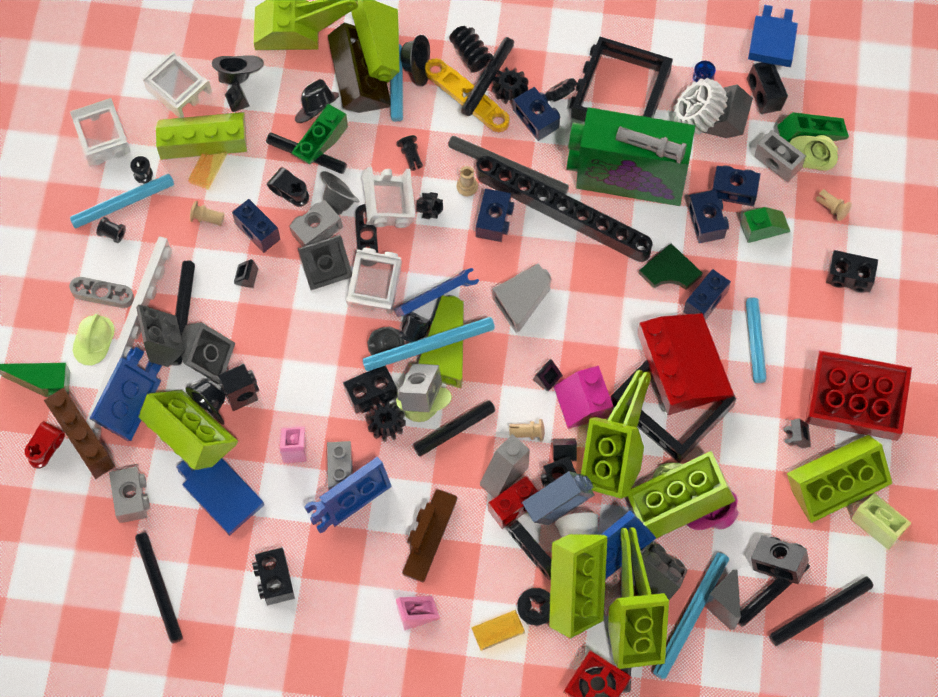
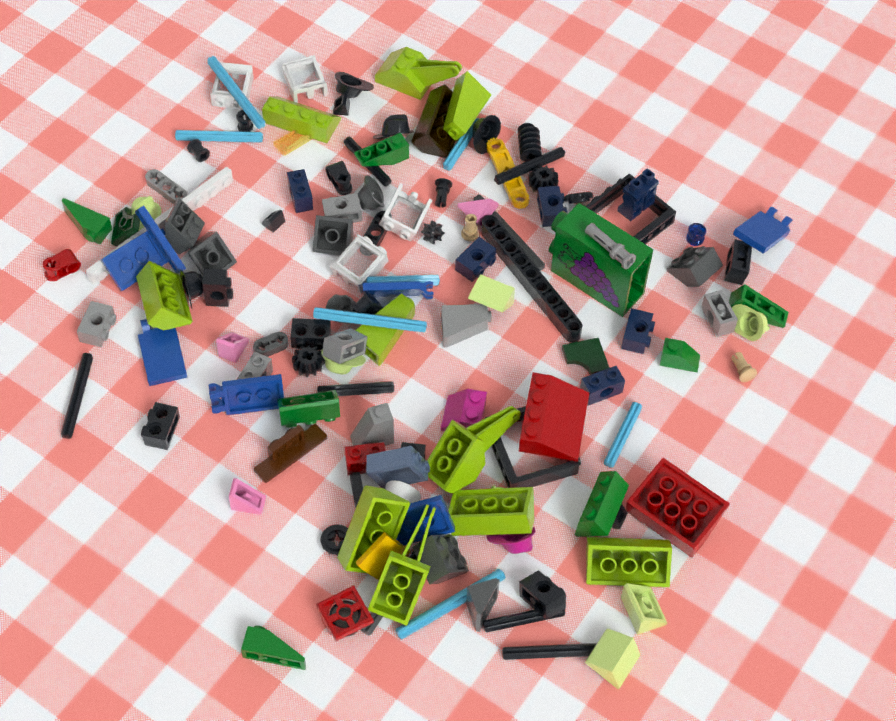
camera: 25 degrees right, 10 degrees down
(79, 433) = (87, 274): reddish brown arch -> none
(87, 363) = (124, 226): none -> dark green tile
(114, 140) = (236, 92): none -> medium azure axle
(144, 363) = (160, 239): none -> blue tile
(184, 298) = (219, 216): black axle -> none
(205, 214) = (268, 168): tan pin -> none
(328, 419) = (270, 344): none -> dark grey beam
(422, 476) = (309, 408): none -> green slope
(431, 278) = (406, 278): none -> medium azure axle
(463, 156) = (479, 208): none -> bright pink slope
(498, 630) = (298, 542): clear yellow tile -> none
(528, 430) = (411, 416): tan pin -> none
(538, 250) = (492, 293): none -> yellowish green slope
(548, 375) = (447, 385): black slope -> none
(564, 448) = (429, 440): black slope -> none
(597, 609) = (376, 556): none -> yellow slope
(630, 61) = (638, 195): none -> dark blue hips
(701, 105) = (676, 251): white gear -> none
(743, 194) = (678, 326): dark blue brick -> none
(784, 433) = (602, 505): none -> green slope
(852, 265) = (730, 416): black brick -> none
(883, 588) = (614, 657): none -> yellowish green slope

